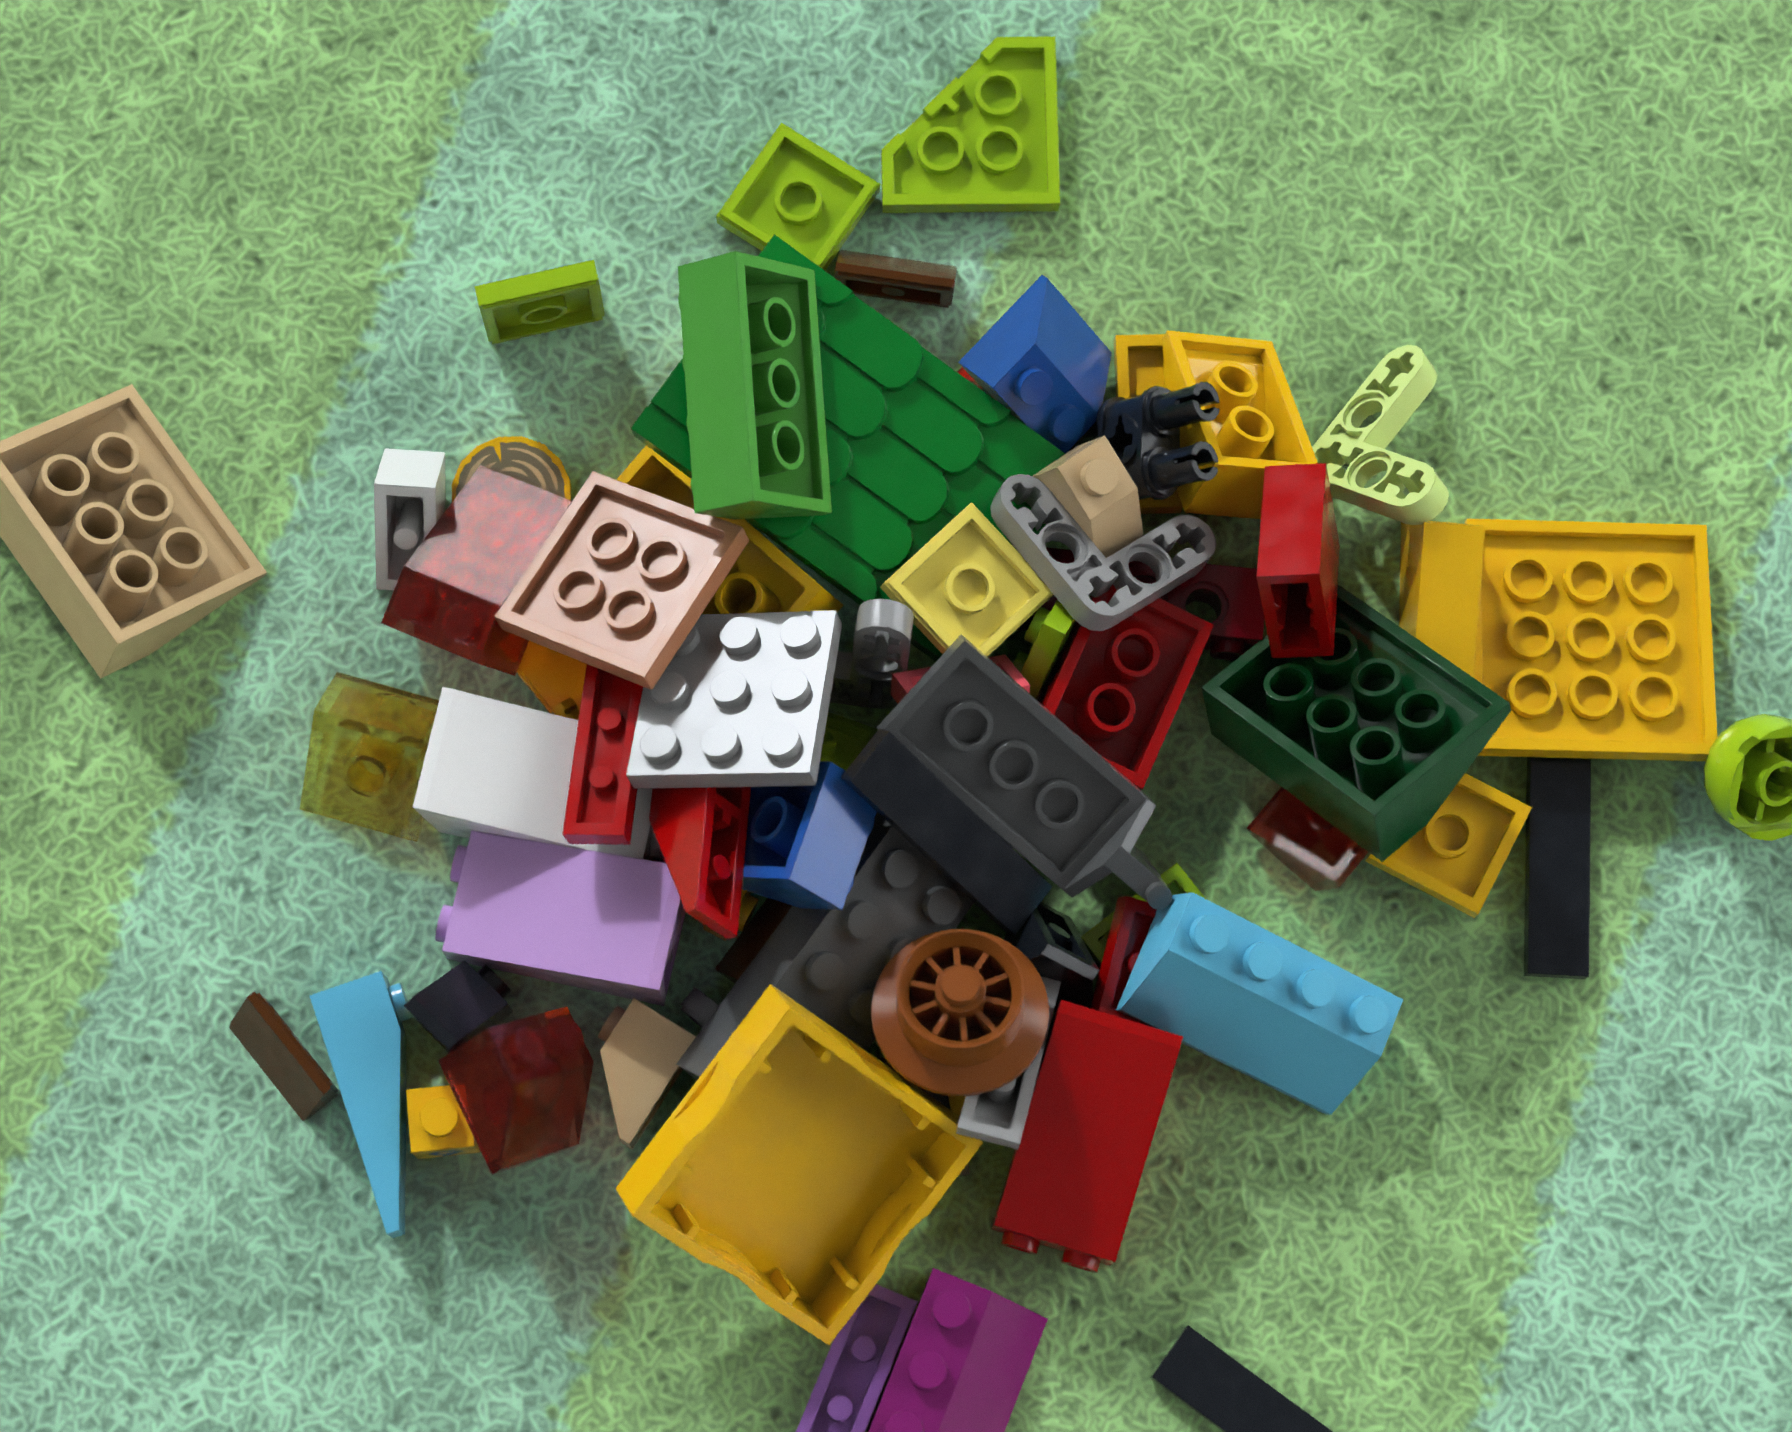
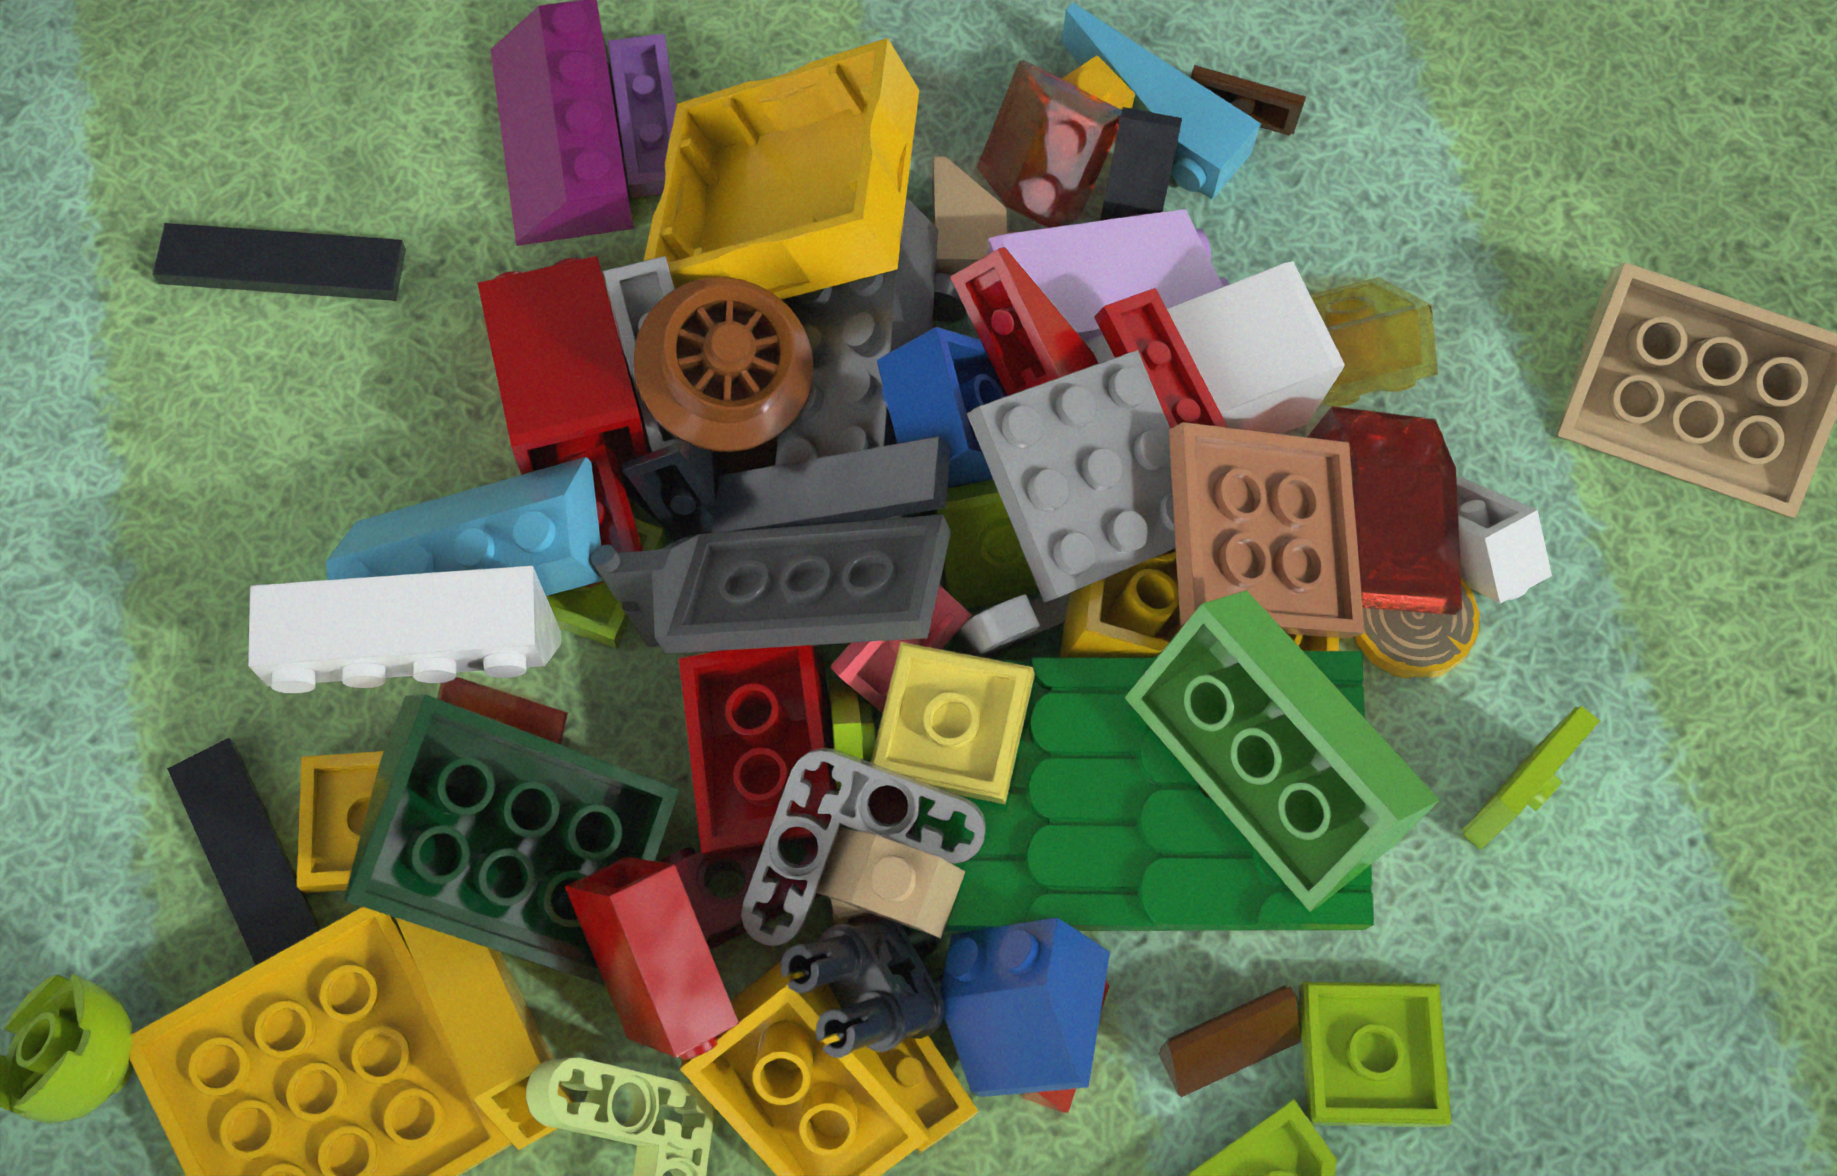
camera: 150 degrees right, 10 degrees down
(1359, 916) = (400, 628): none -> white slope

